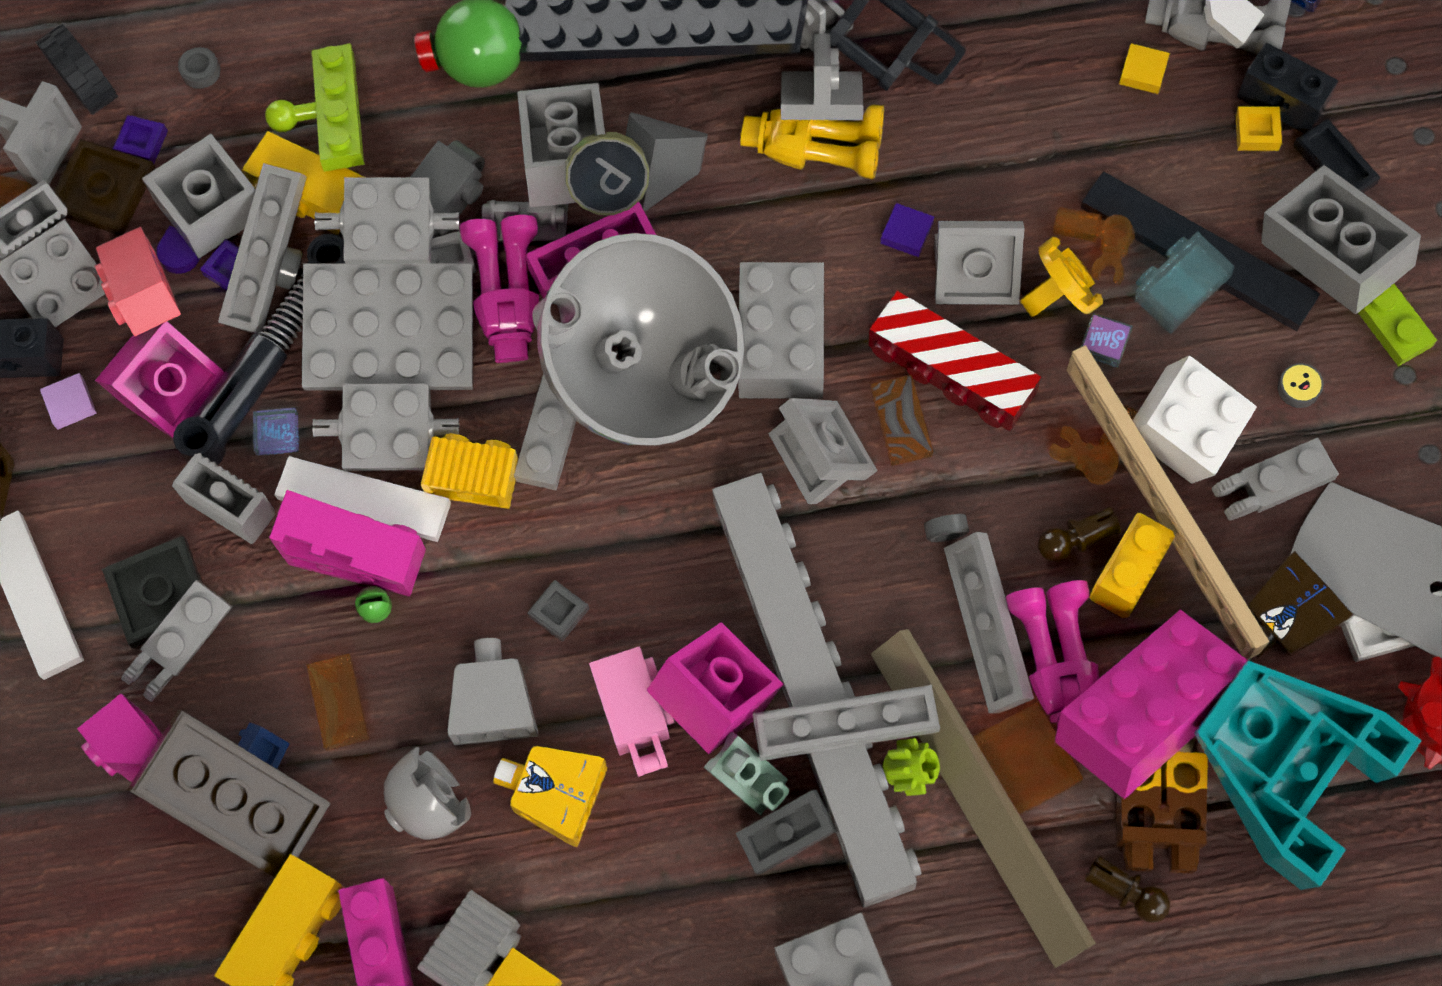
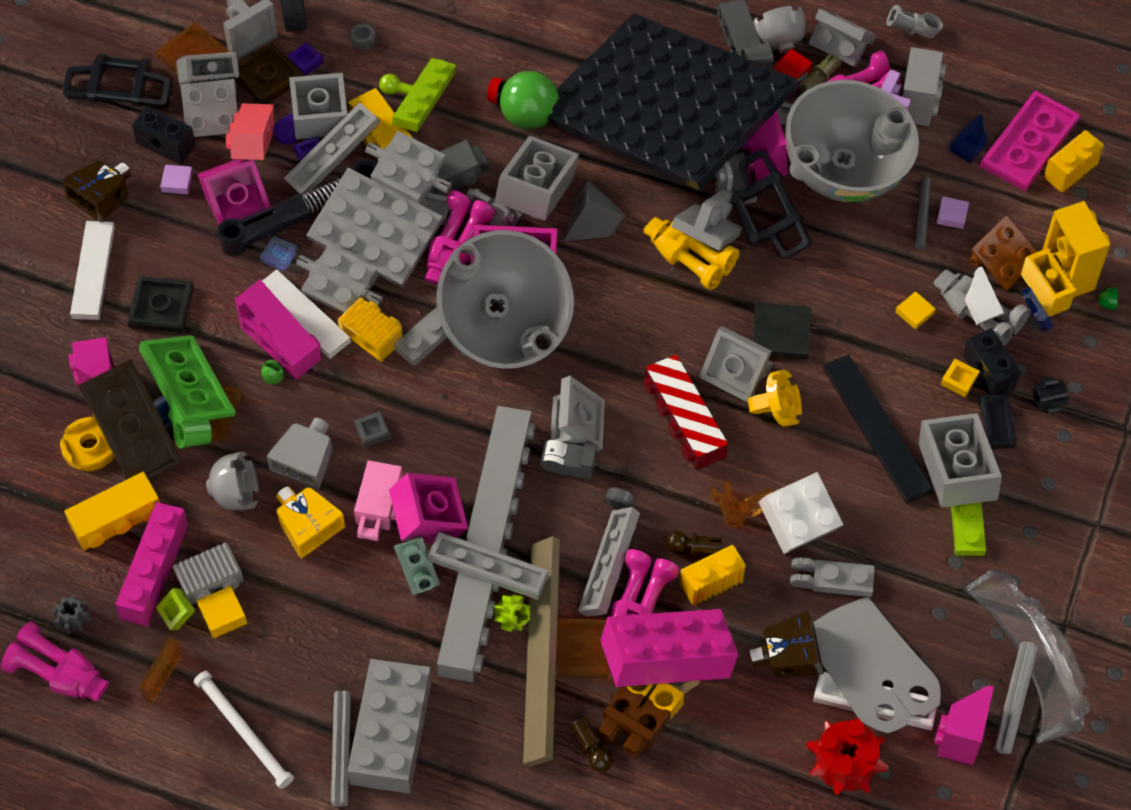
camera: 25 degrees right, 10 degrees down
(175, 876) = (85, 458): none -> yellow tile
(179, 636) = (167, 325): light grey hinge -> none
(224, 498) = (225, 270): light grey brick -> none
(289, 268) = (340, 168): dark grey tile -> none
(295, 716) = (192, 401): none -> bright green hinge
(607, 173) = (545, 201): black tile -> none
(782, 330) = (597, 343): light grey brick -> none
(786, 832) = (419, 608): dark grey hinge -> none
(846, 508) = (569, 459): none -> dark grey leg
(901, 420) = (635, 430): clear orange tile -> none
(907, 230) = (707, 327): dark purple tile -> none
(999, 182) = (783, 329): none -> pearl dark grey tile
(1106, 339) = (785, 448): tile -> none
(1115, 231) = (828, 389): clear orange bar -> none
(1166, 504) = (752, 549): tan tile -> none
(1183, 281) = (850, 437): clear light blue brick -> none
(1280, 748) = (728, 711): teal wedge -> none
(1300, 385) = (885, 533): tile -> none
(1382, 91) = (1050, 394): none -> black gear

